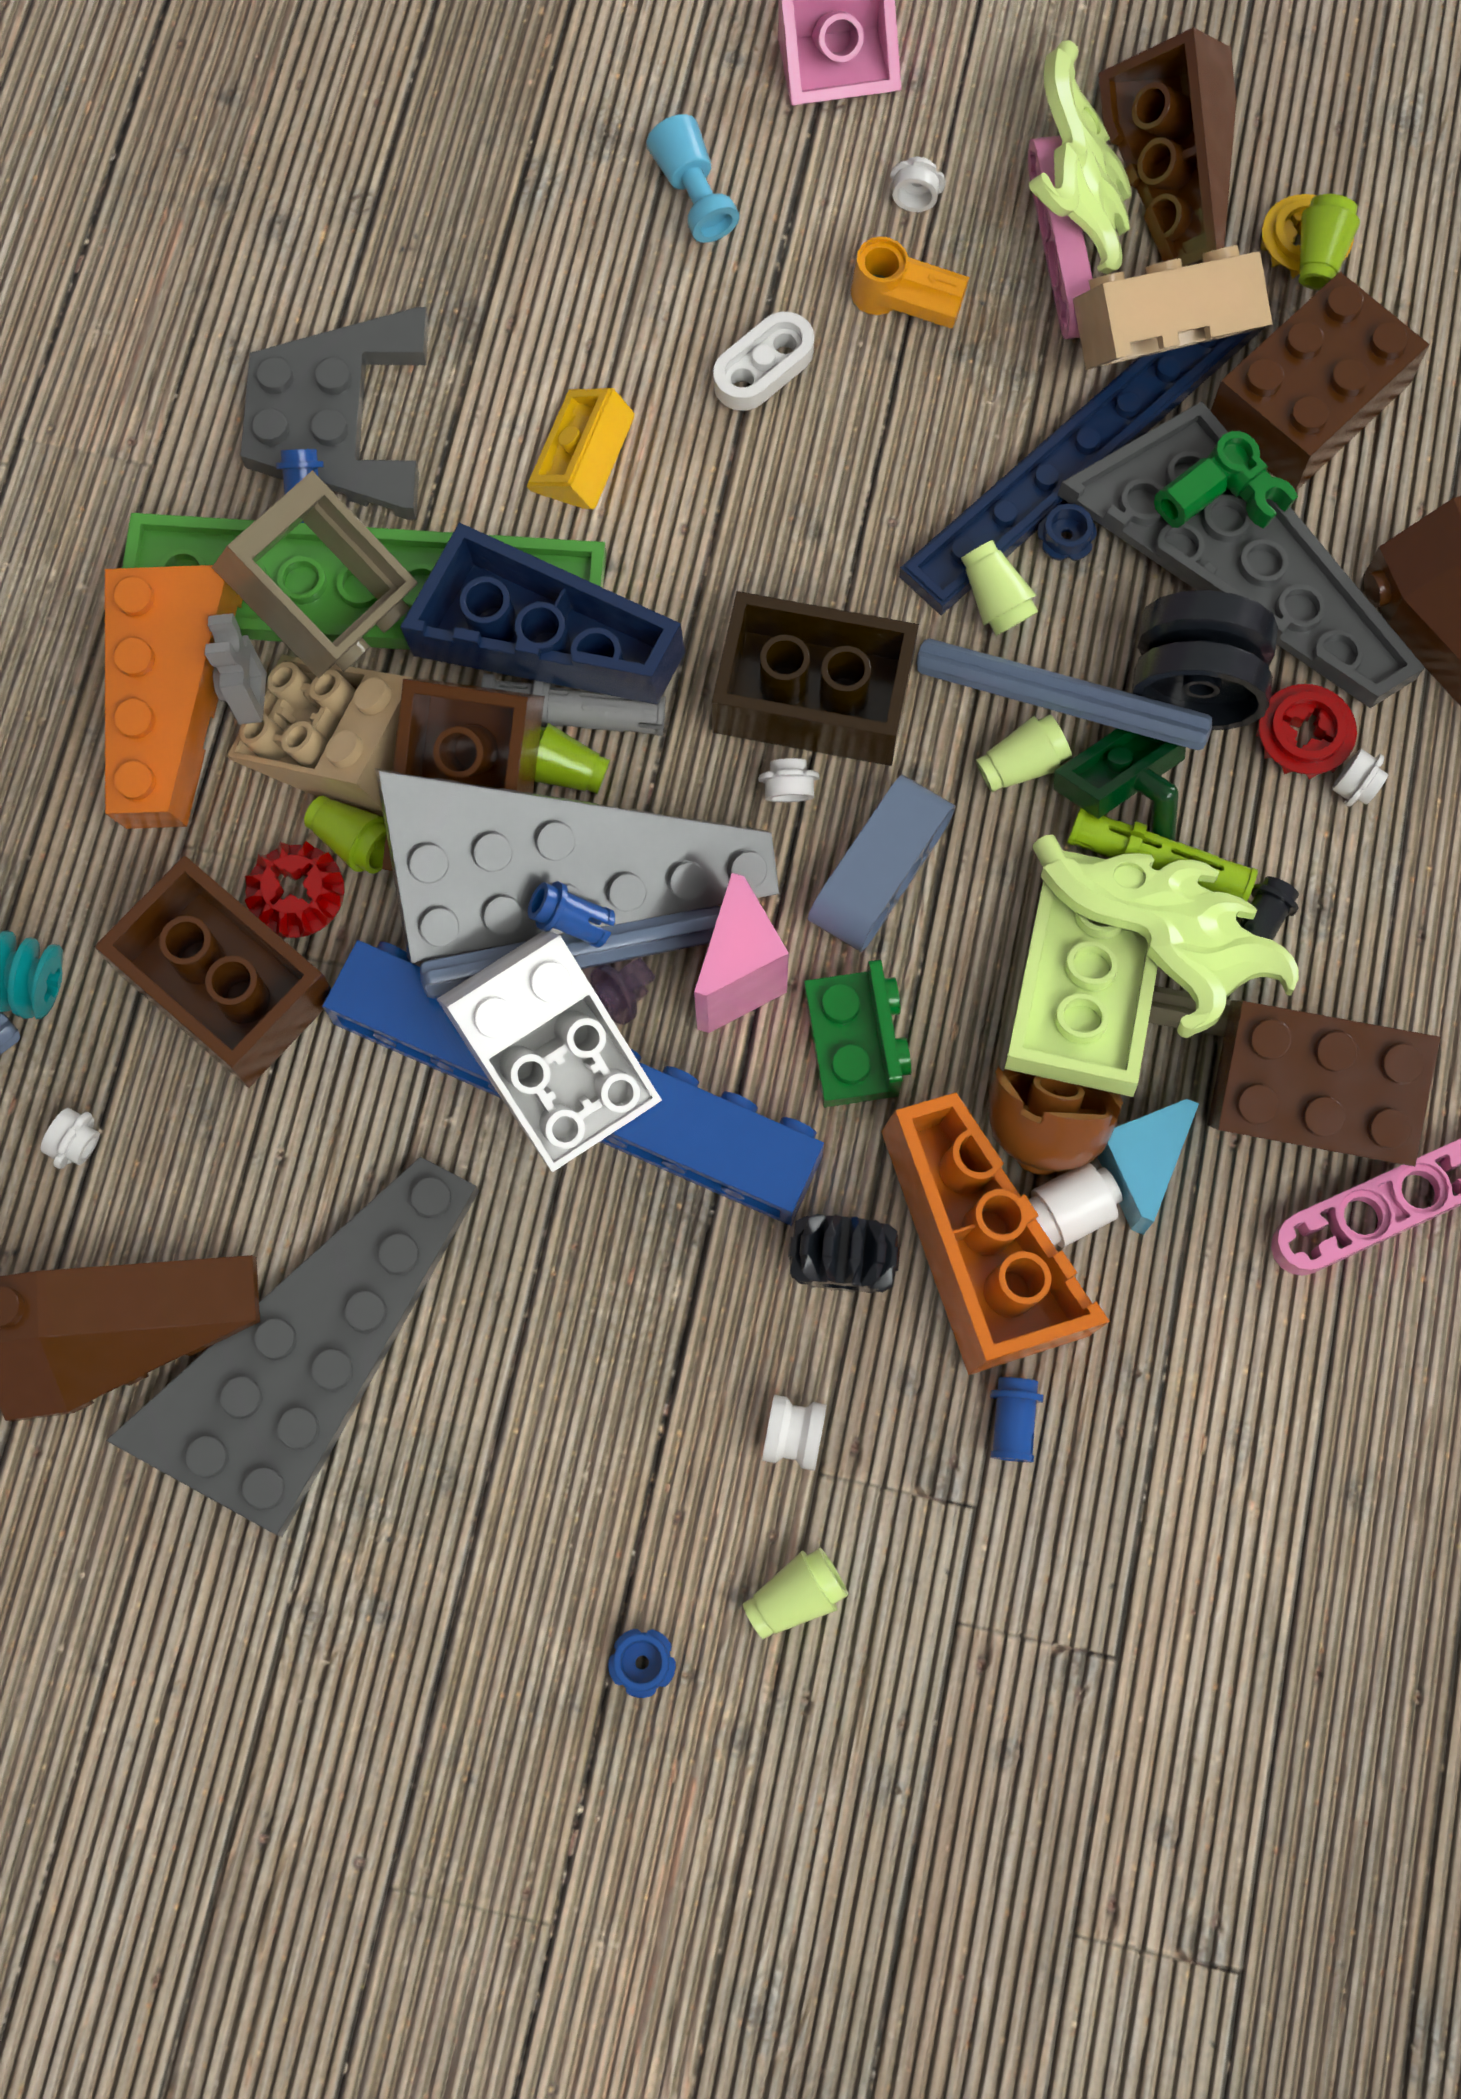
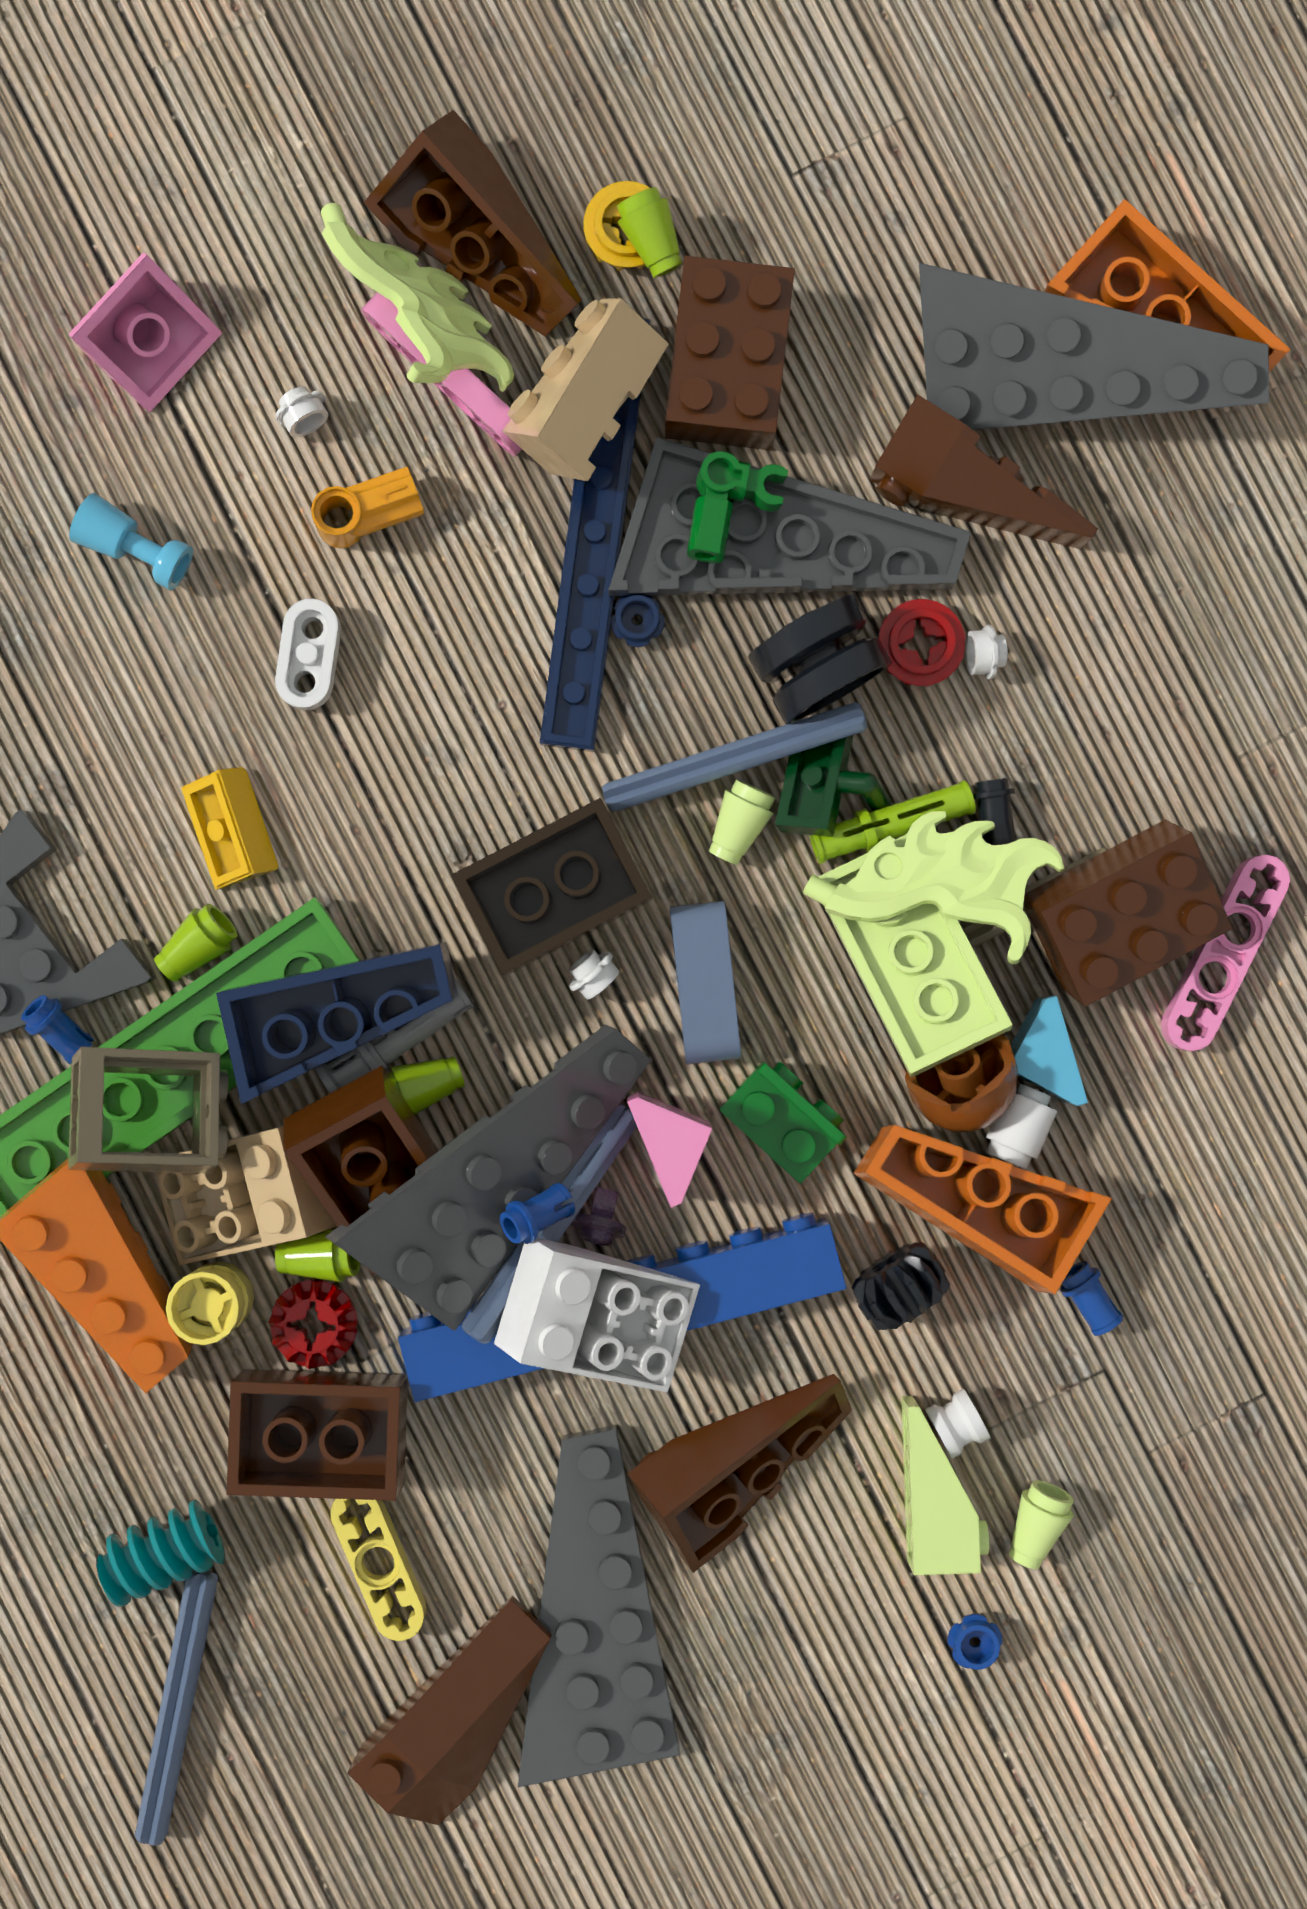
camera: 40 degrees left, 15 degrees up
(70, 1138) = (316, 1617): white plate -> none
(137, 1176) = (407, 1593): none -> light yellow beam
(225, 792) = (209, 1303): none -> light yellow wheel
(237, 669) = (144, 1216): light grey plate -> none
(481, 505) = (196, 942): none -> lime cone
(541, 1302) = (714, 1475): none -> reddish brown wedge
(711, 1498) = (939, 1517): none -> yellowish green slope
(998, 588) = (627, 709): yellowish green cone -> none

